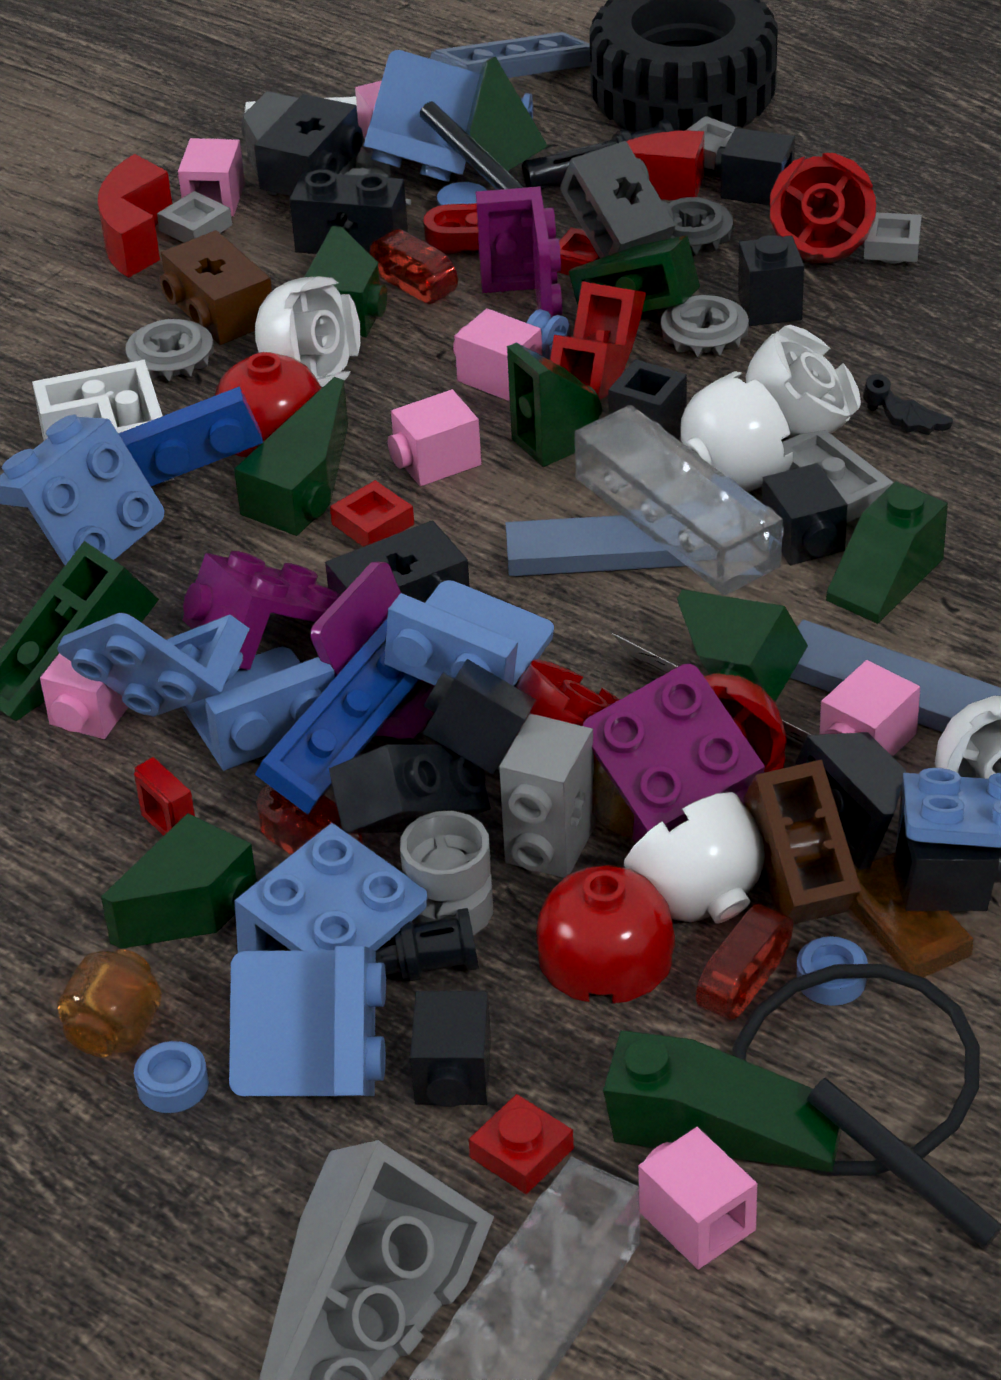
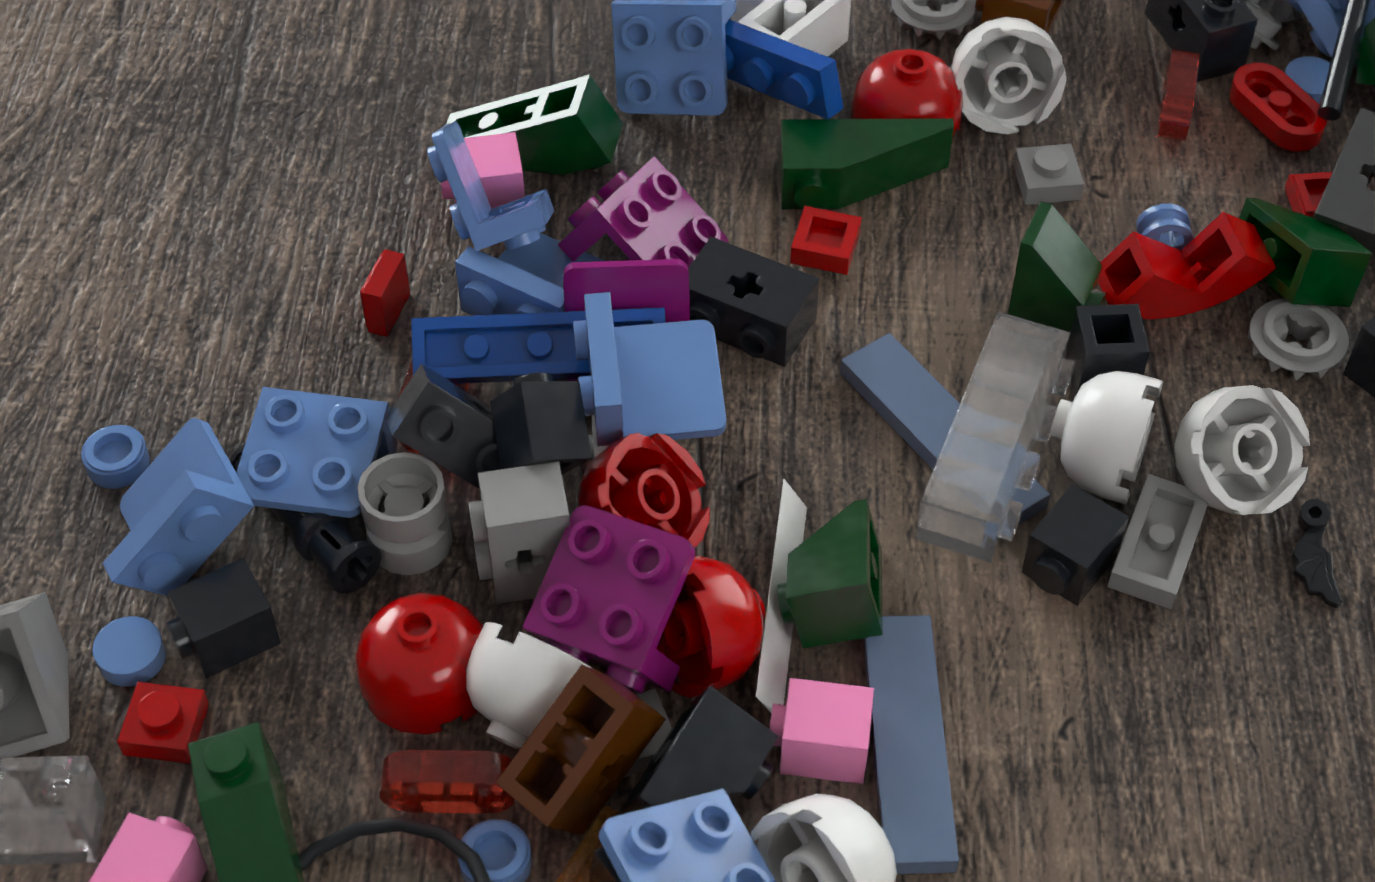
camera: 55 degrees right, 10 degrees up
(109, 1002) = (153, 375): clear orange head -> none
(180, 886) = (301, 347): dark green slope -> none
(356, 275) = (1105, 61): dark green slope -> none
(417, 372) = (1048, 174): none -> light grey plate
(423, 1136) = (129, 651): none -> medium blue tile
(435, 438) = (955, 227): bright pink brick -> none
(483, 350) = (1106, 207): bright pink brick -> none
(519, 245) = (1244, 150): magenta bracket -> none
(889, 552) = (1072, 640): dark green slope -> none

